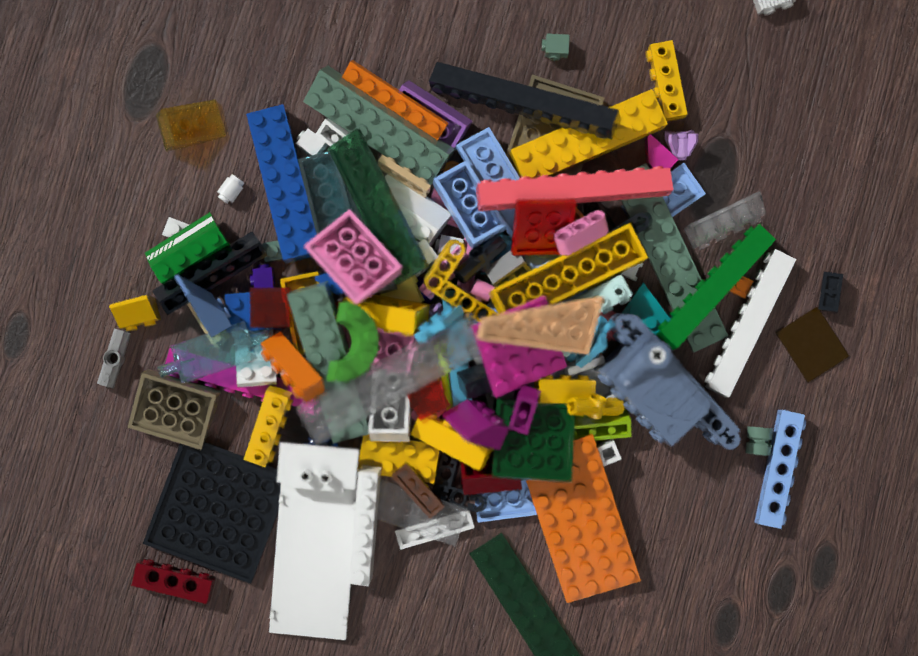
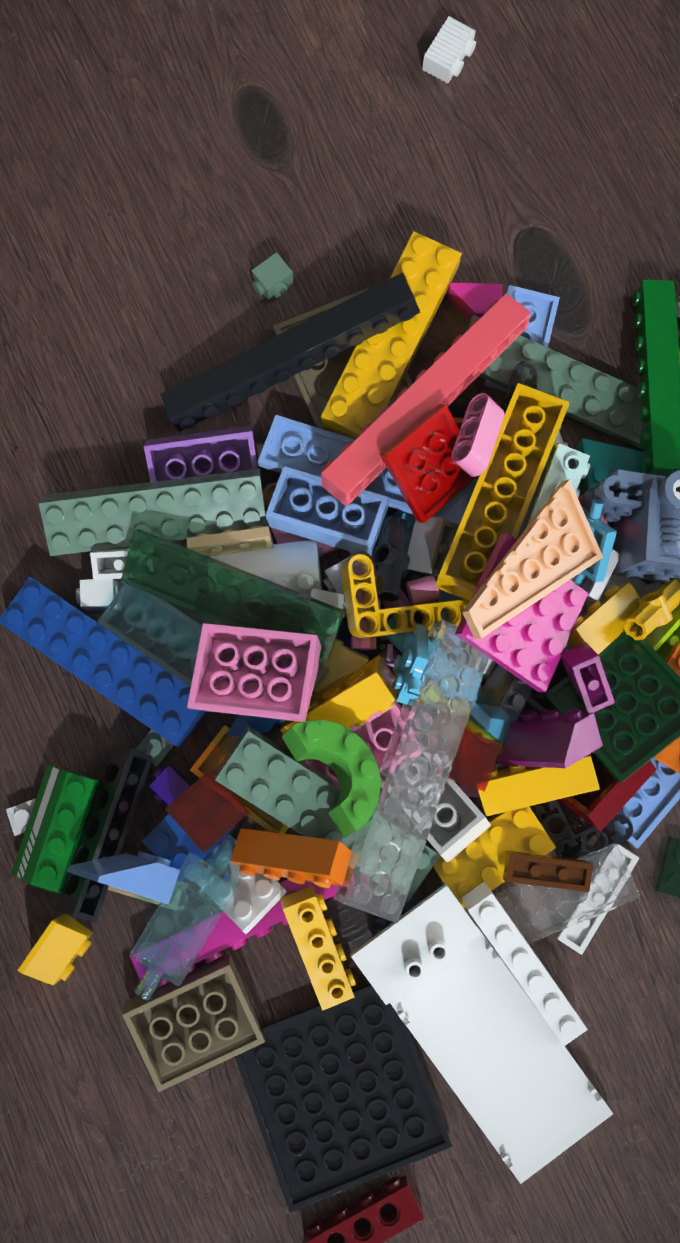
camera: 45 degrees left, 5 degrees down
(110, 371) = (82, 1042): light grey piece -> none
(230, 189) = (49, 719): white brick -> none
(395, 100) = (149, 469): orange plate -> none
(667, 80) = (411, 212): yellow brick -> none
(681, 143) = (490, 266): lavender brick -> none
(726, 220) = (605, 306): clear slope -> none

